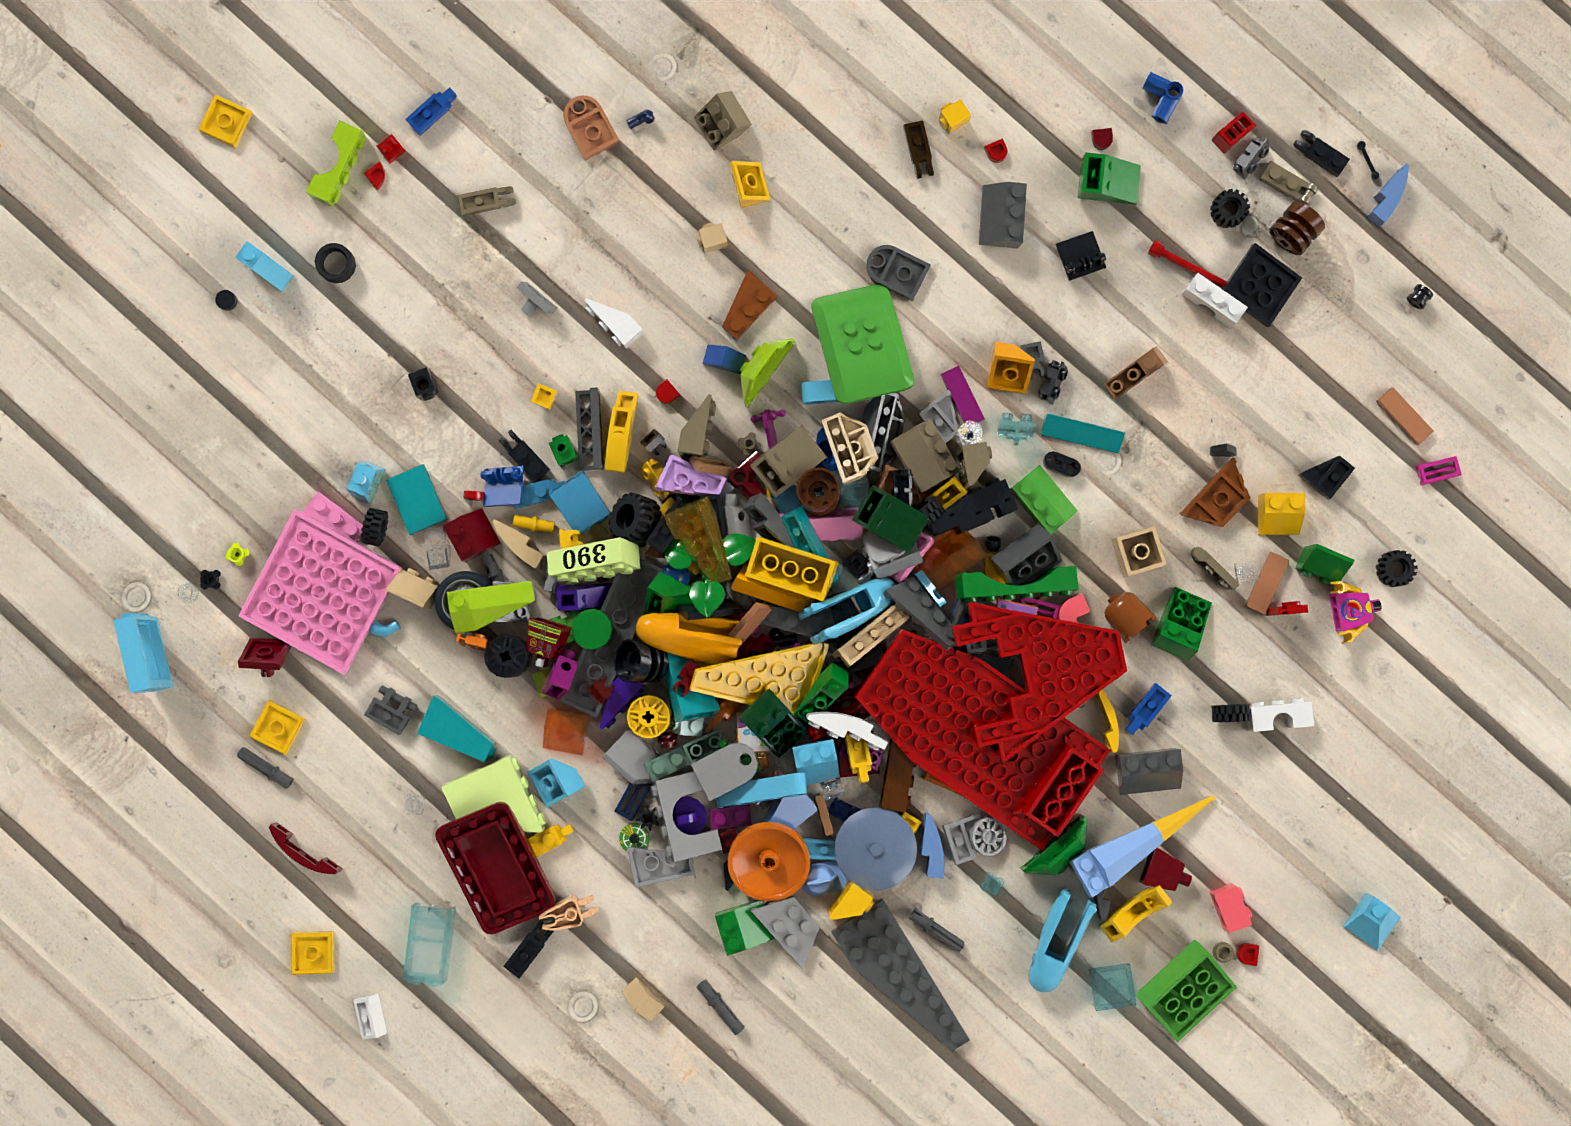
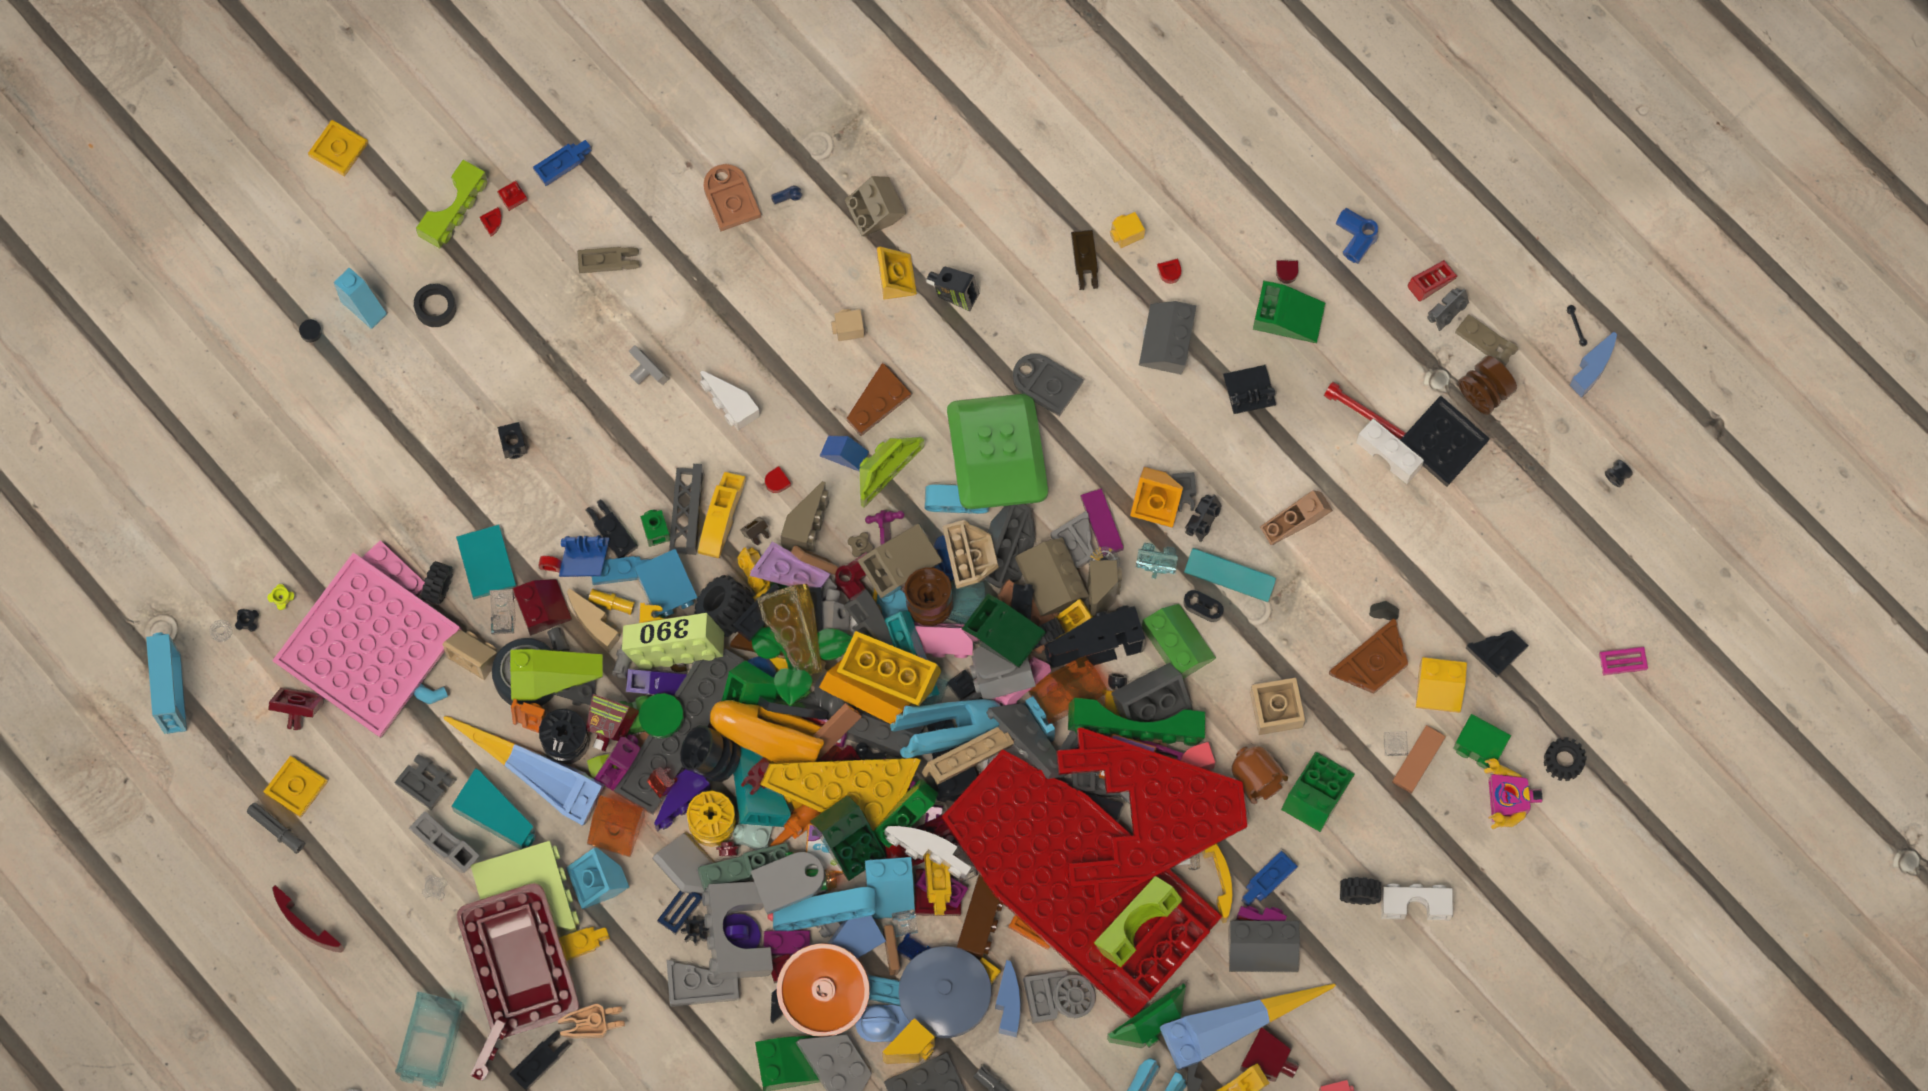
camera: 10 degrees right, 15 degrees down
(312, 952) = (296, 1036): yellow tile -> none
(365, 481) = (435, 534): medium azure torso -> none
(416, 766) = (443, 844): none -> light grey arch
(488, 932) = (489, 1050): none -> hinge
(511, 699) = (559, 784): none -> light blue plate
(544, 396) = (642, 468): yellow tile -> none
(634, 836) = (675, 950): bright green piece -> none
(804, 190) = (955, 287): none -> black torso
(994, 890) = (1072, 1057): clear light blue plate -> none
(1053, 749) = (1153, 901): none -> lime arch
(1149, 745) = (1252, 914): none -> magenta slope
(1214, 567) = (1359, 733): dark tan hinge -> none
(1238, 200) = (1418, 370): black tyre -> none
(1288, 608) = (1436, 786): red plate -> none
(1322, 153) = (1526, 313): black hinge -> none
(1405, 416) = (1591, 598): nougat tile -> none

